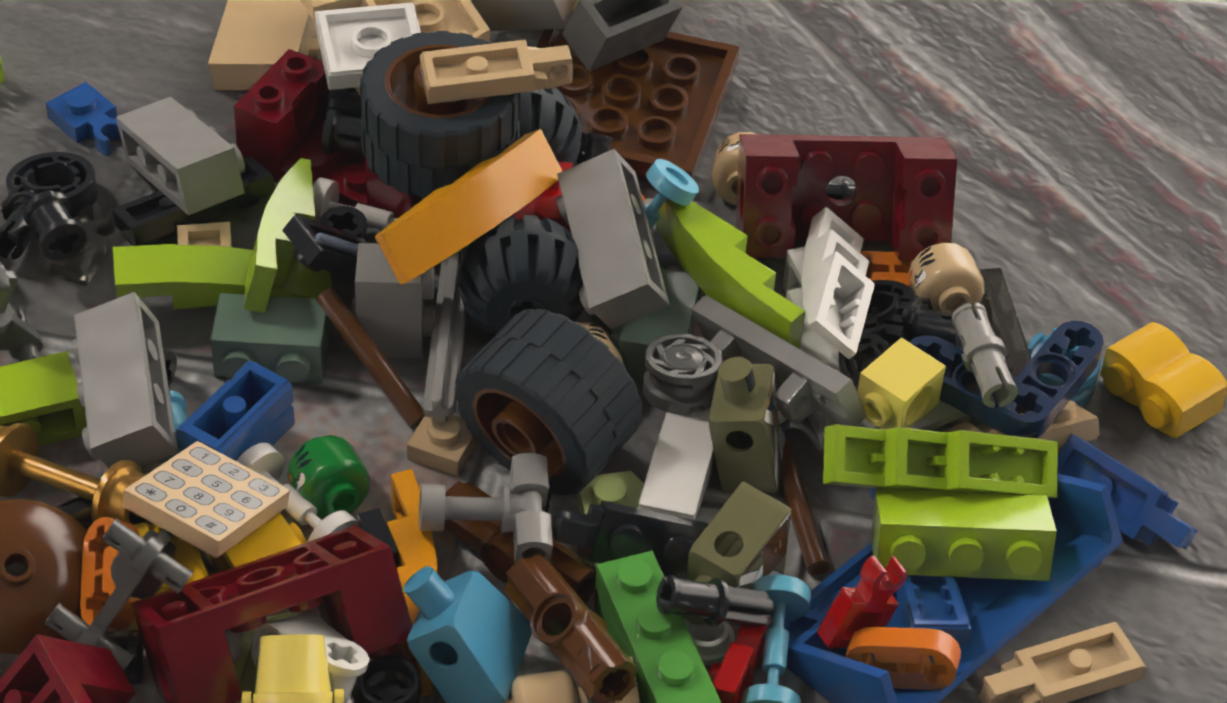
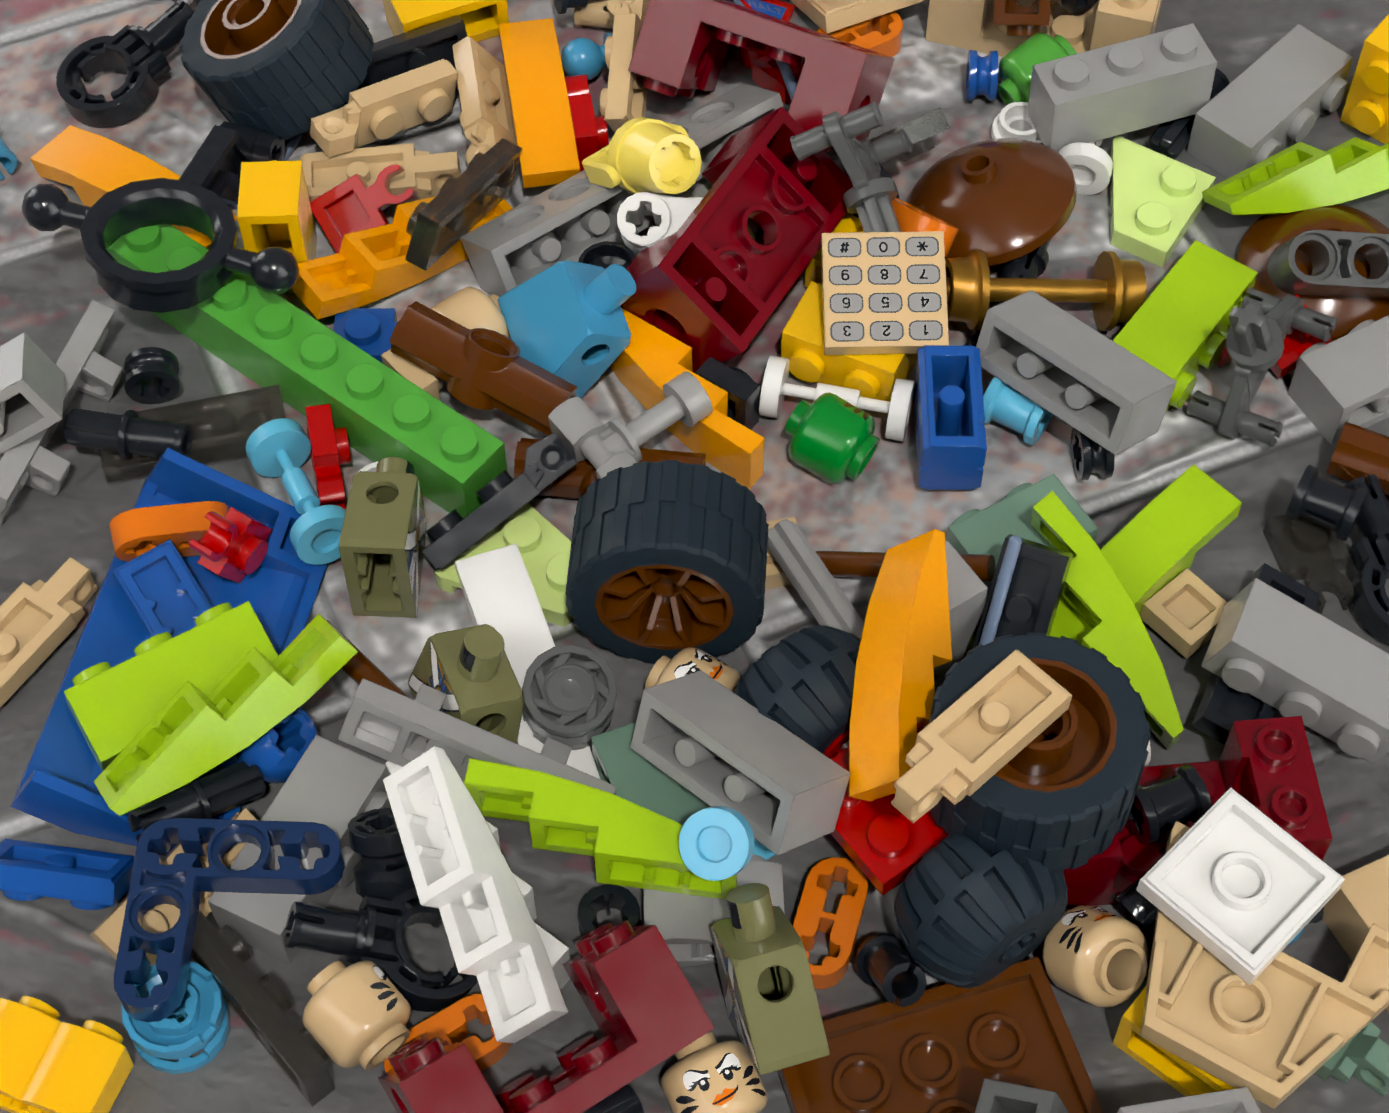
camera: 150 degrees right, 10 degrees up
(690, 147) = (767, 982): none -> olive torso
(714, 601) = (365, 449): black axle -> none
(900, 386) = (318, 777): light yellow brick -> none
(984, 355) = (238, 858): light grey pin -> none

